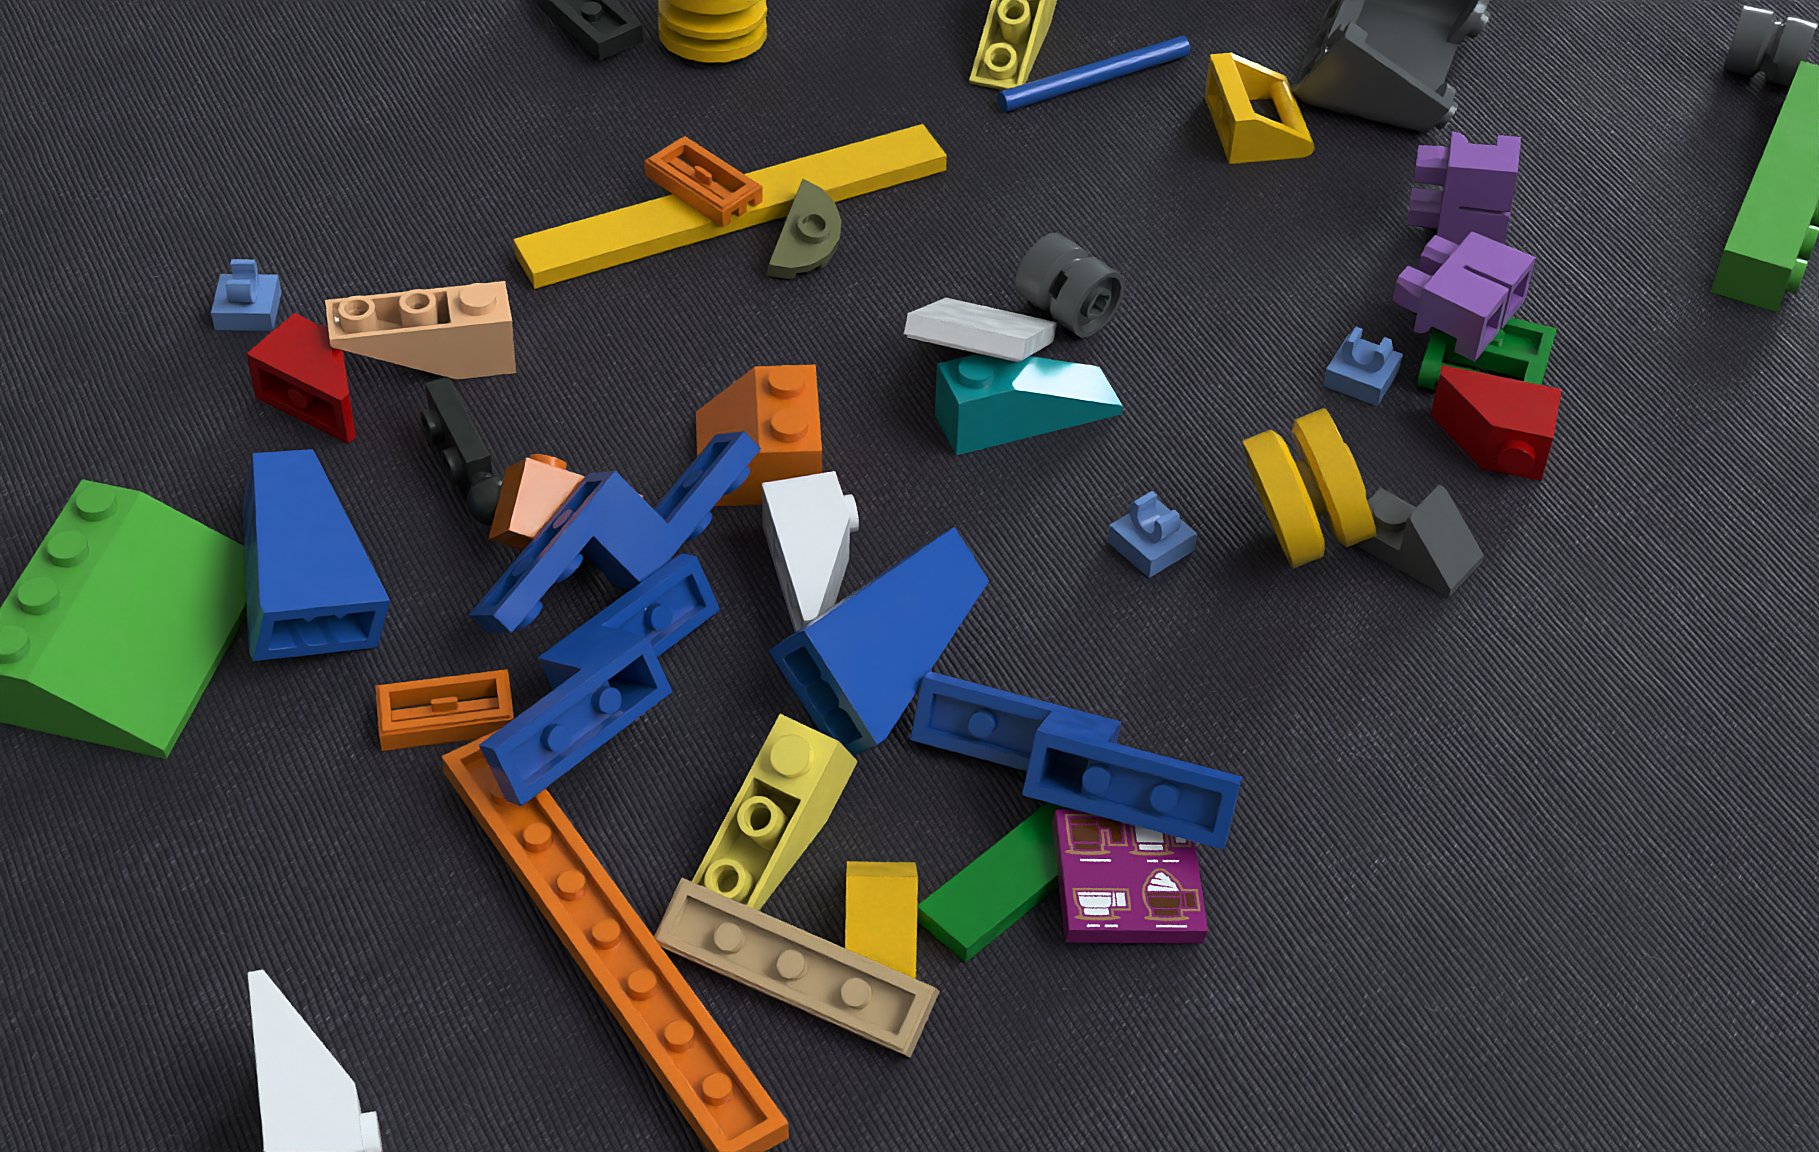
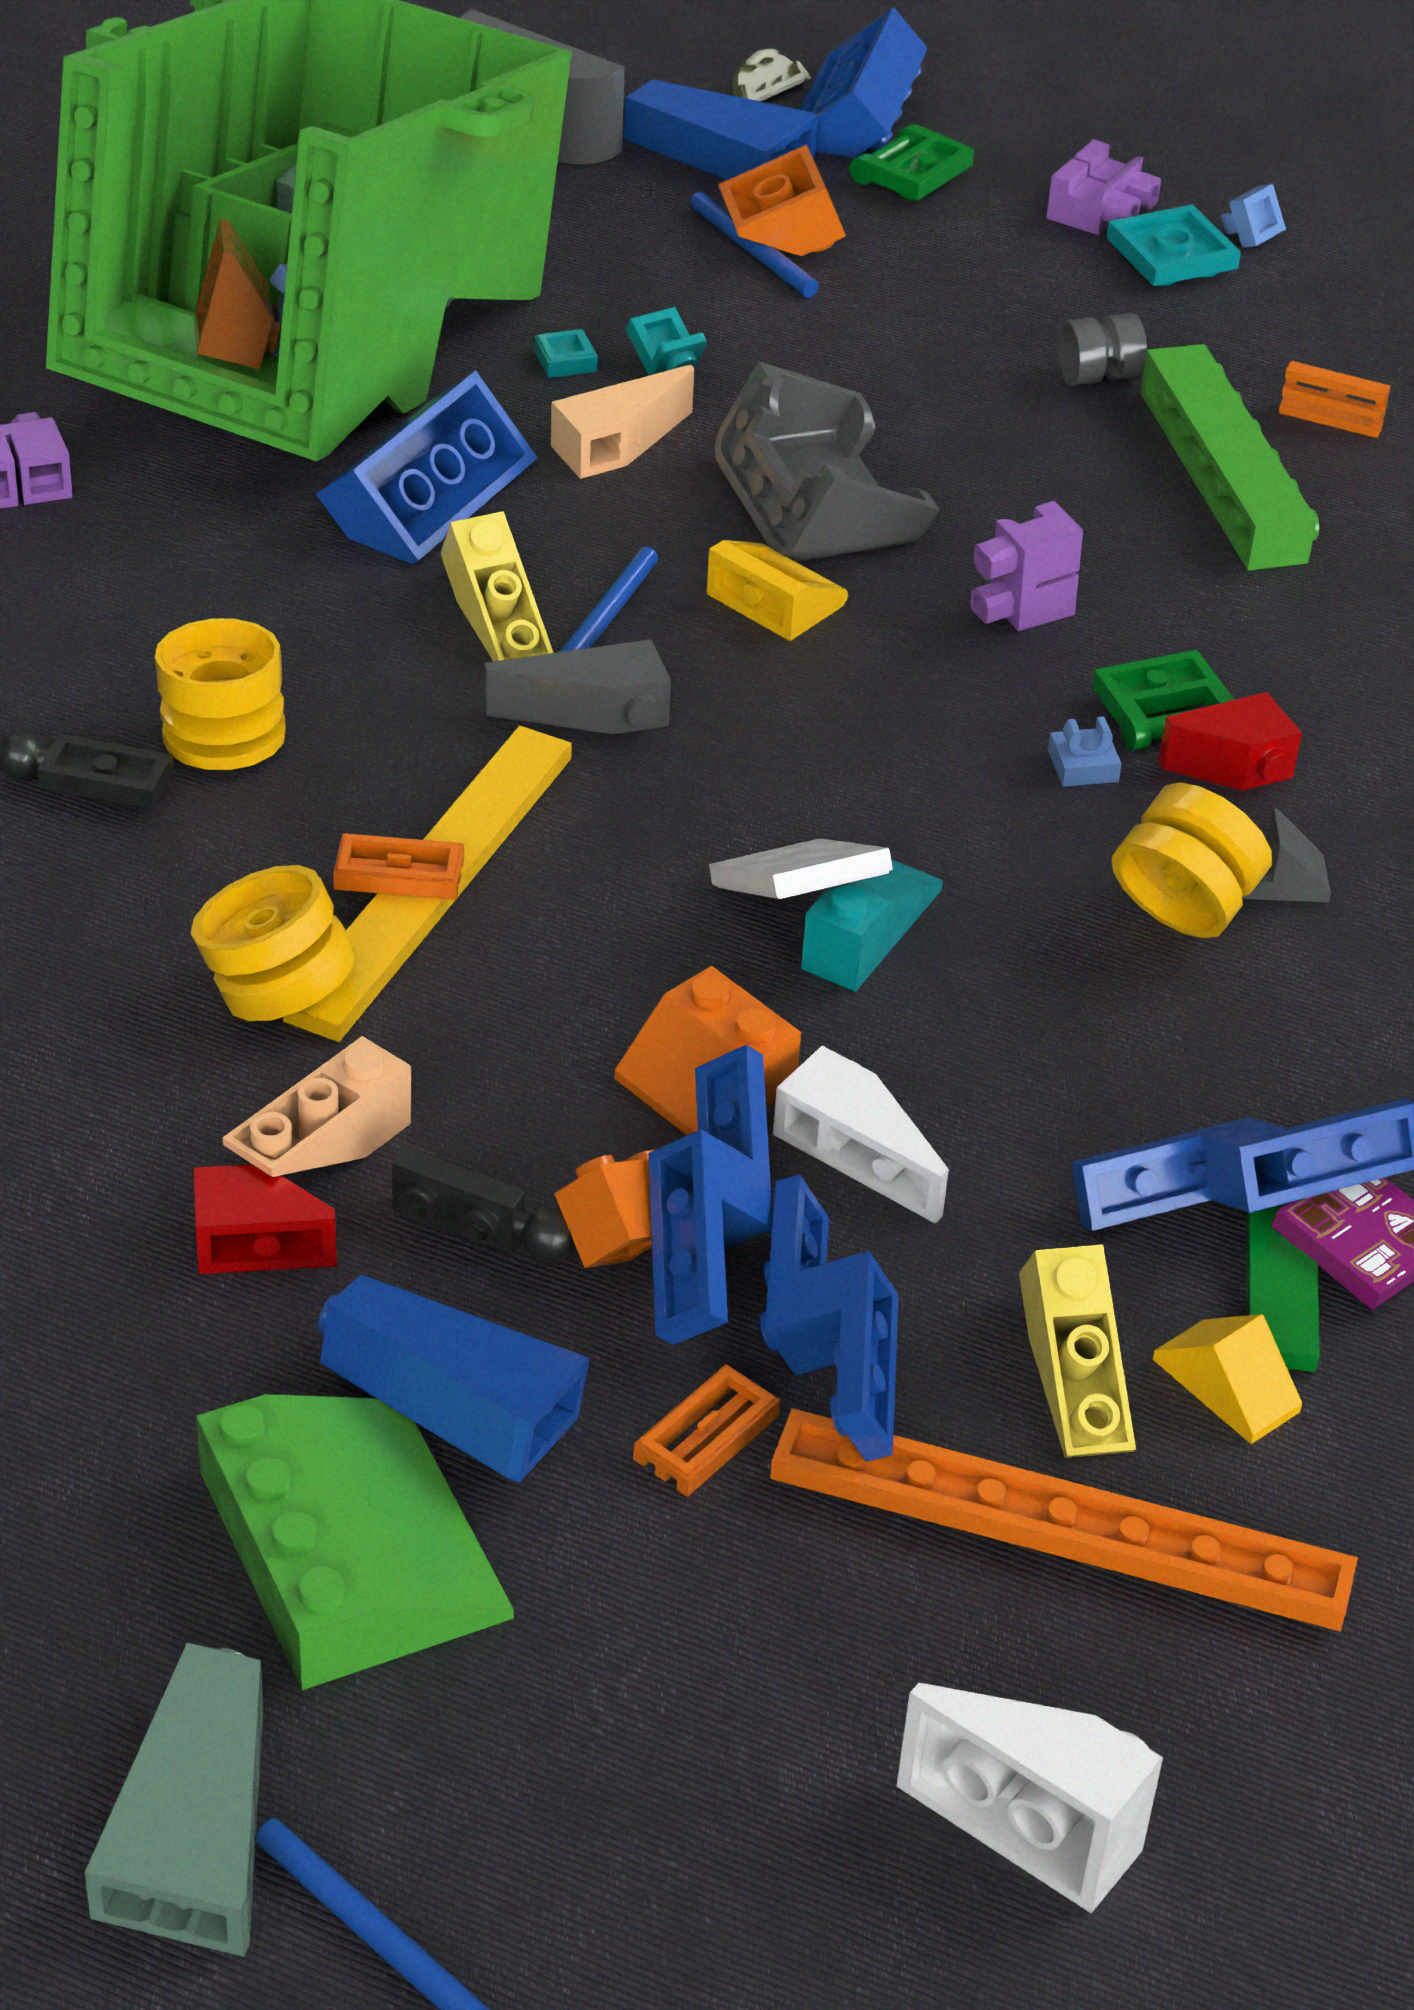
camera: 40 degrees left, 5 degrees down
(246, 299) = (91, 1191): medium blue tile -> none
(531, 186) = (273, 943): none -> yellow wheel
(796, 967) = (1220, 1447): tan tile -> none
(808, 234) = (534, 867): olive plate -> none
(874, 647) = (1007, 1155): blue slope -> none
(1003, 120) = (583, 689): none -> dark grey slope
(1069, 284) = (787, 796): dark grey wheel -> none
(1151, 535) = (1083, 970): medium blue tile -> none
(1465, 289) = (1120, 647): medium lavender hips -> none

